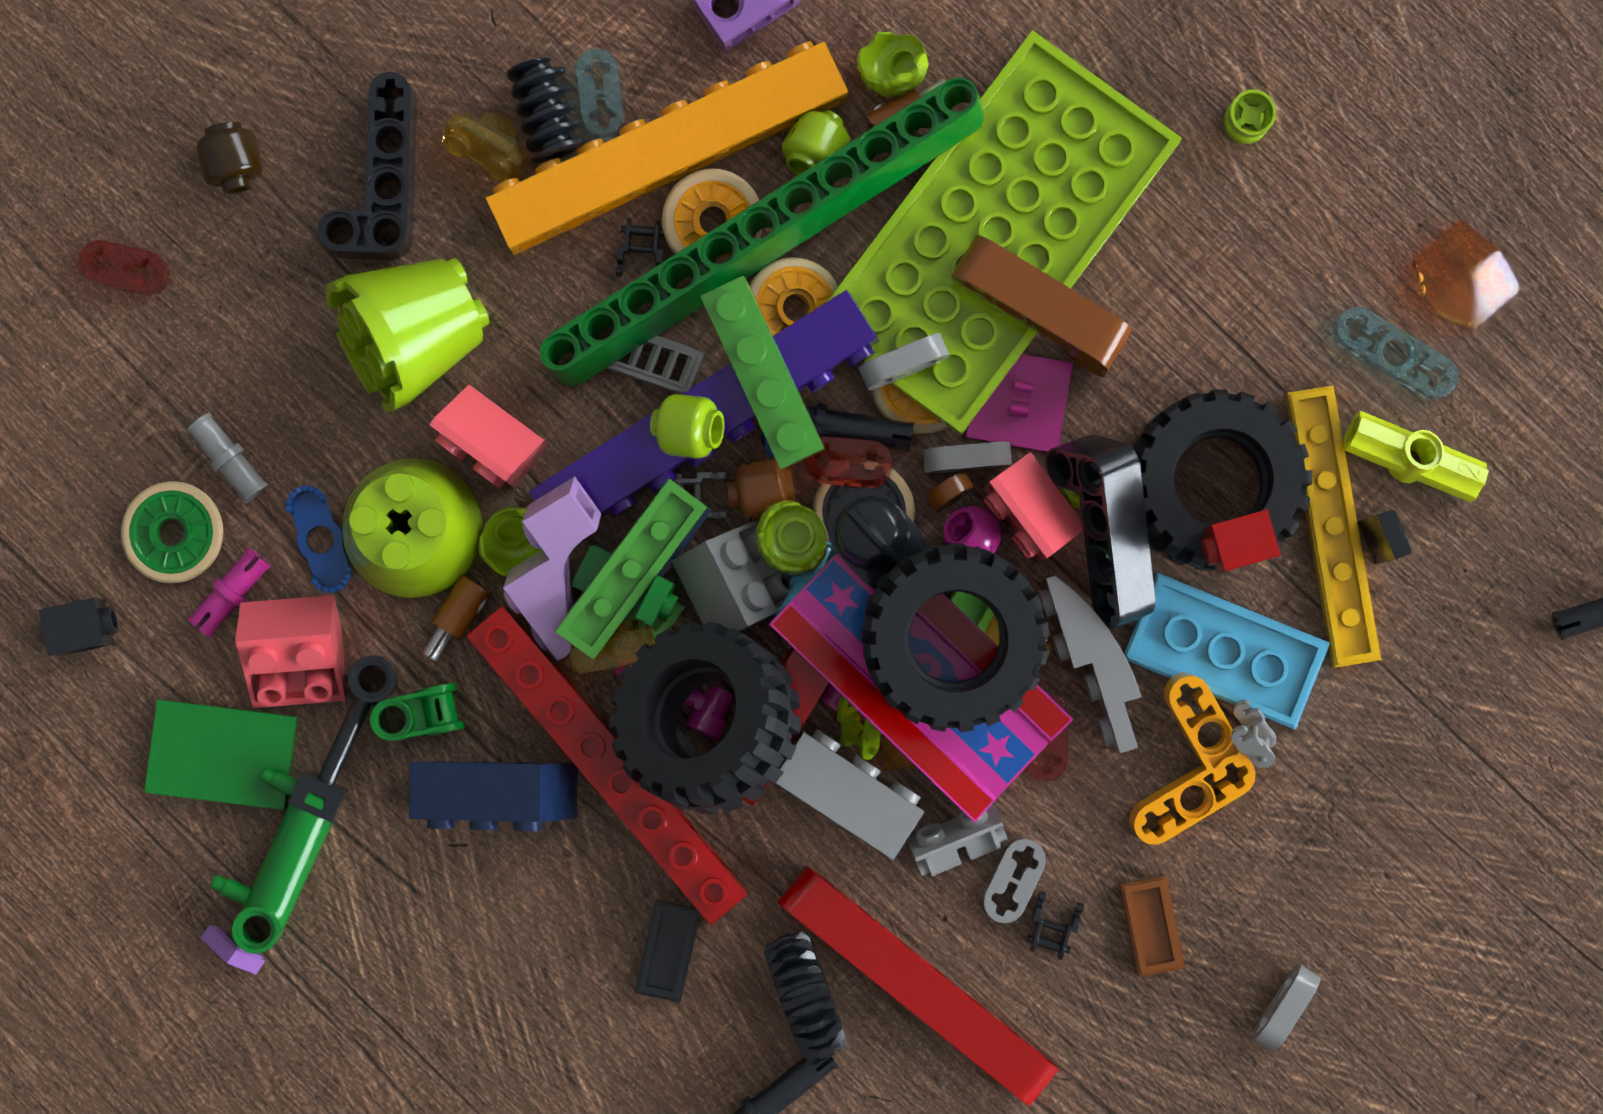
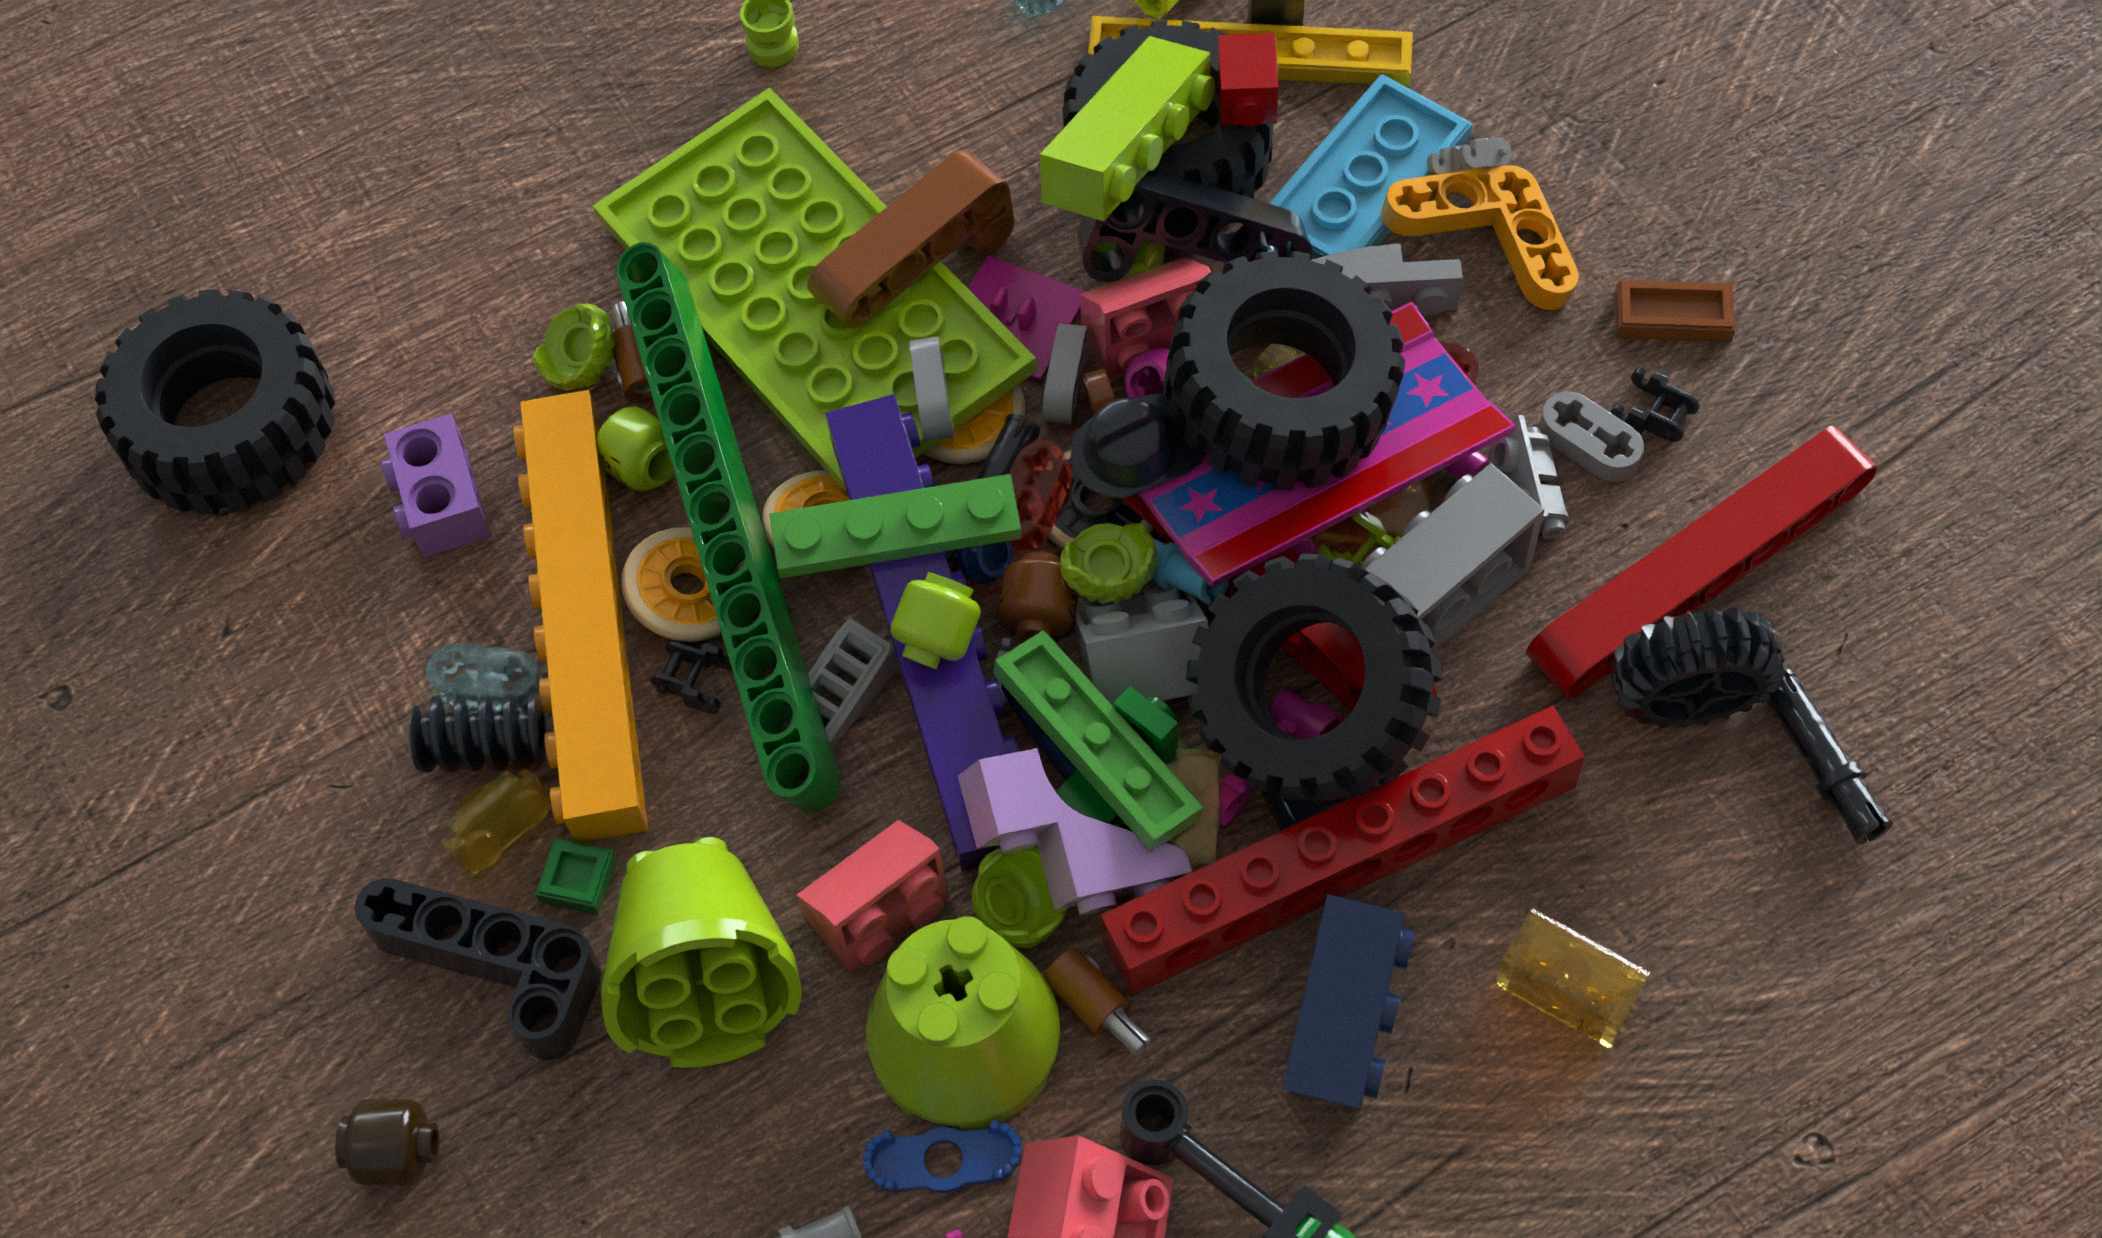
camera: 65 degrees left, 25 degrees down
(420, 713) = (1218, 1070): green piece -> none
(462, 216) = (576, 876): none -> green tile
(548, 946) = (1571, 978): none -> clear yellow brick
(667, 951) = (1605, 844): black tile -> none
(1155, 458) = (1126, 128): none -> lime brick
(1286, 1007) = (1798, 192): light grey beam -> none

